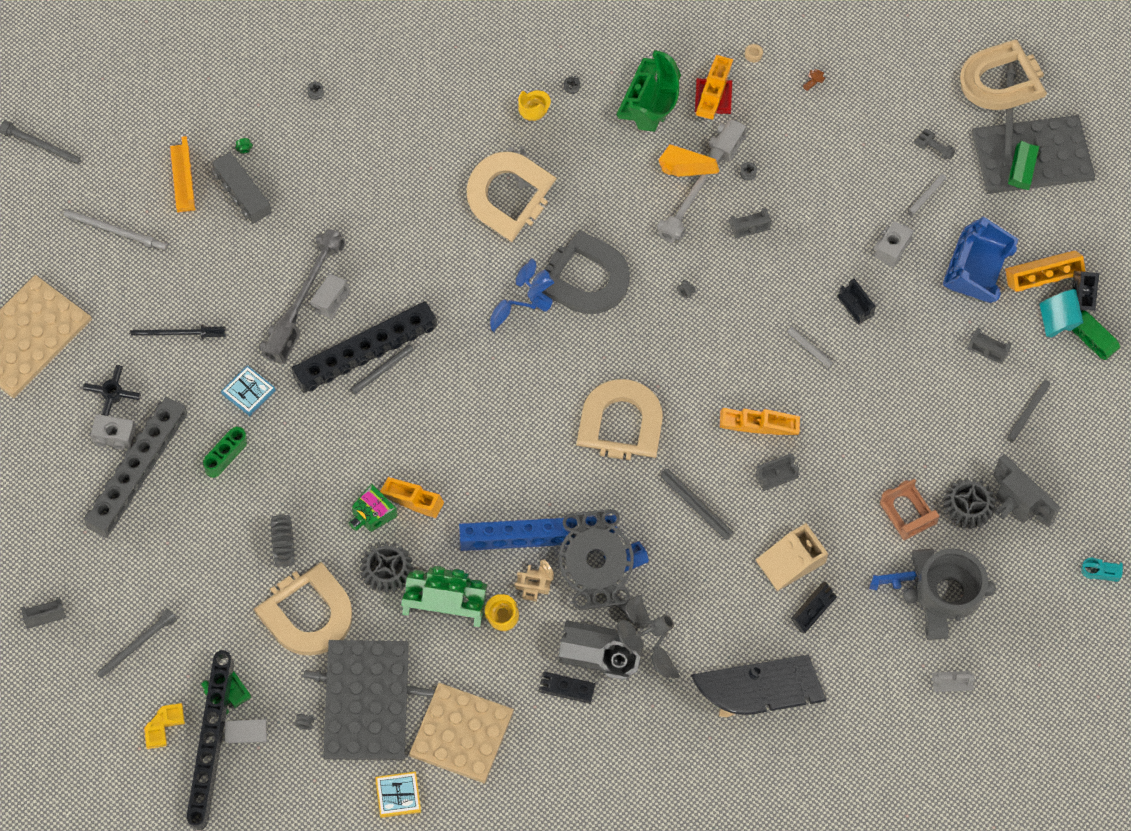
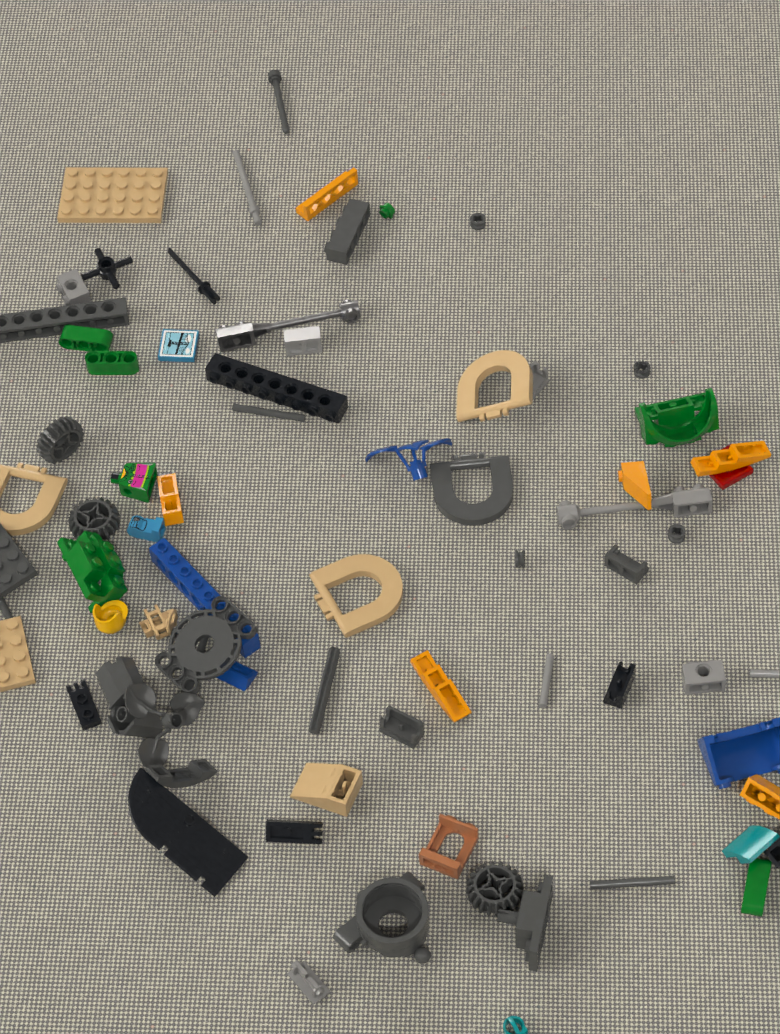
camera: 60 degrees right, 10 degrees down
(178, 456) = (85, 338): none -> green beam
(429, 532) = (147, 528): none -> dark azure leg
(533, 105) = (592, 354): yellow helmet -> none
(704, 650) = (195, 773): none -> dark grey slope
(895, 579) = (360, 865): blue piece -> none
(989, 347) = (669, 811): dark grey hinge -> none

